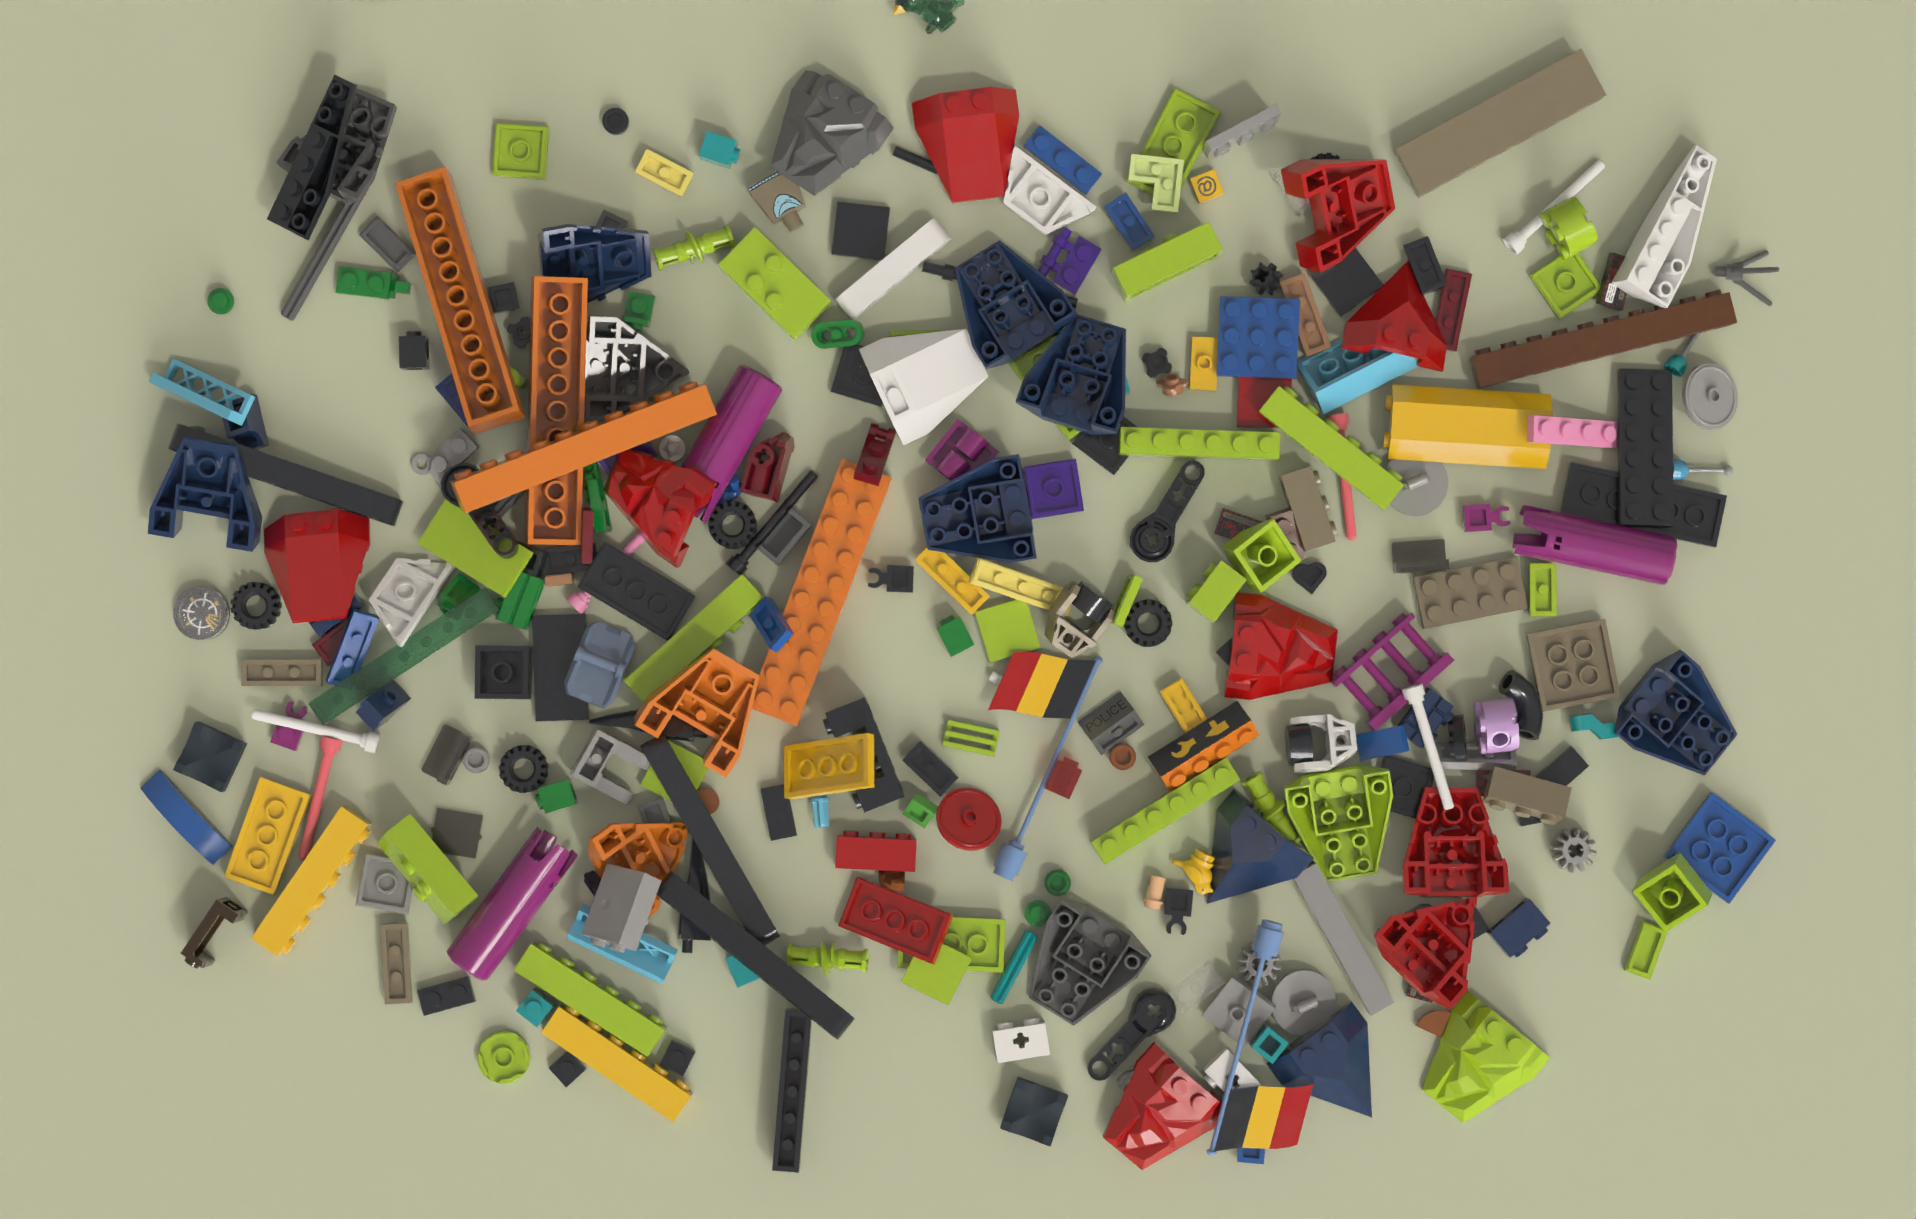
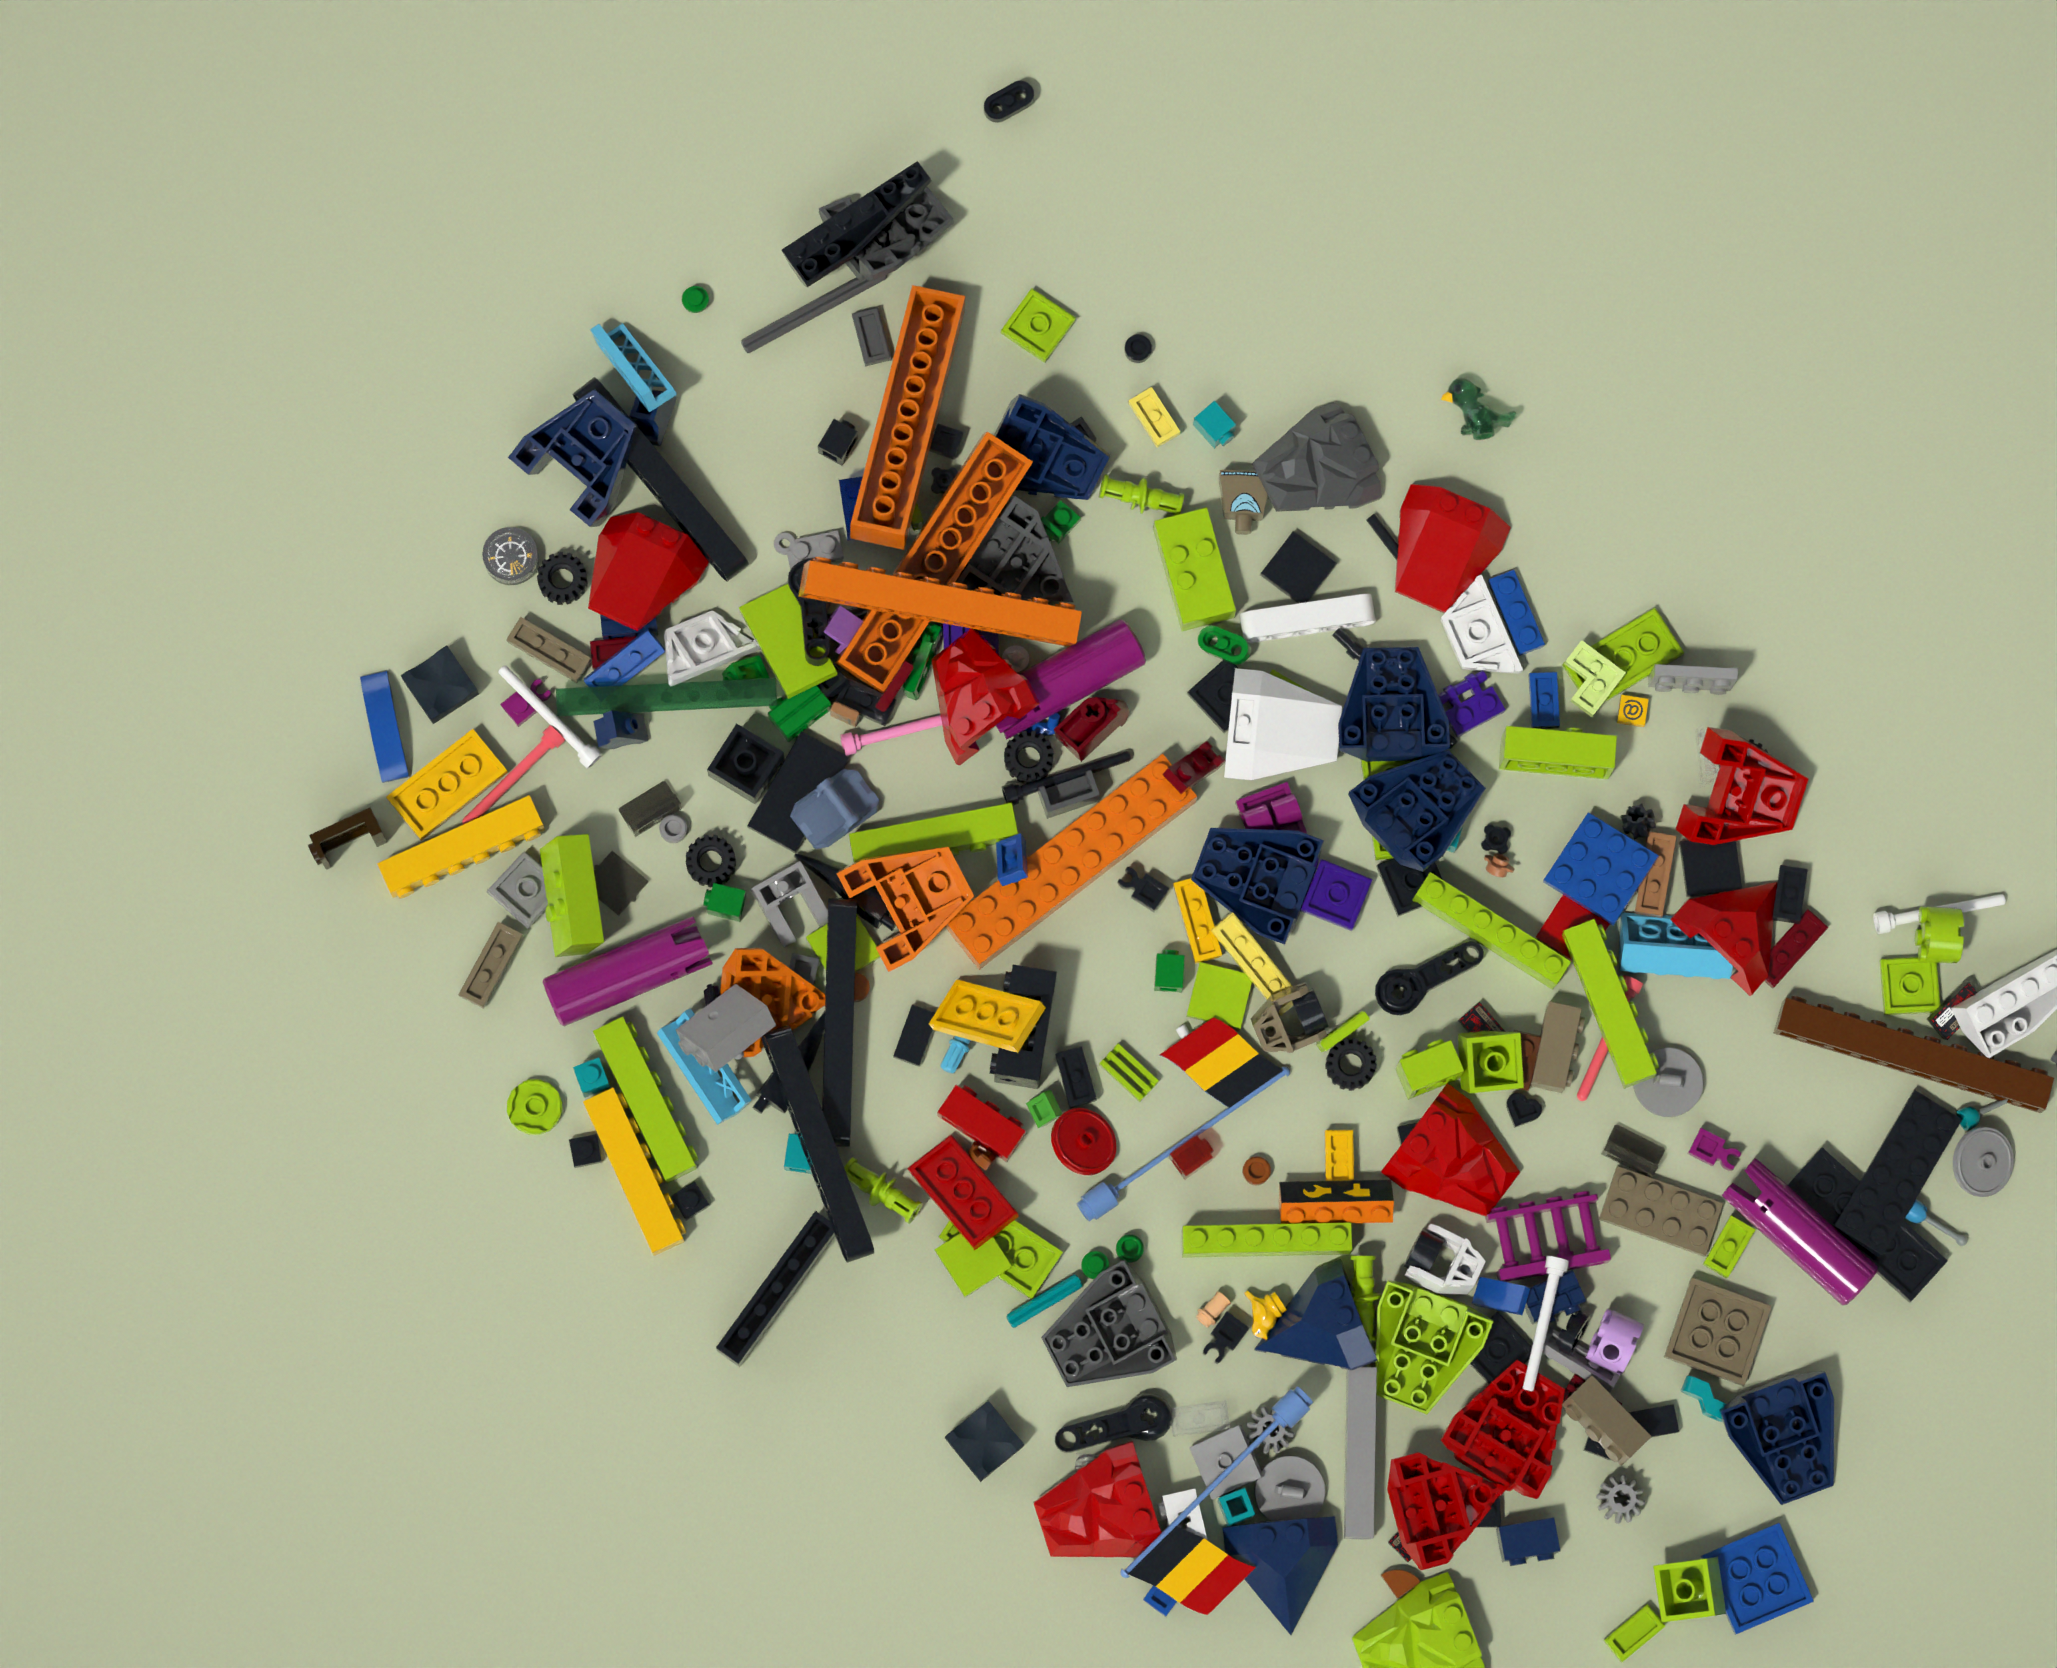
camera: 30 degrees right, 10 degrees down
(369, 283) = (835, 361): green hinge -> none
(446, 995) = (517, 1021): black plate -> none
(513, 512) = (842, 627): none -> medium lavender panel
(636, 591) = (907, 763): black tile -> none
(1035, 1046) = (1019, 1383): white brick -> none
(1111, 723) = (1264, 1134): dark grey panel -> none
(1203, 363) = (1537, 864): yellow plate -> none
(1464, 426) = (1746, 1059): yellow panel -> none
(1500, 123) = (1931, 808): dark tan tile -> none
(1527, 704) = (1654, 1340): black cylinder -> none
(1572, 431) = (1838, 1117): bright pink plate -> none

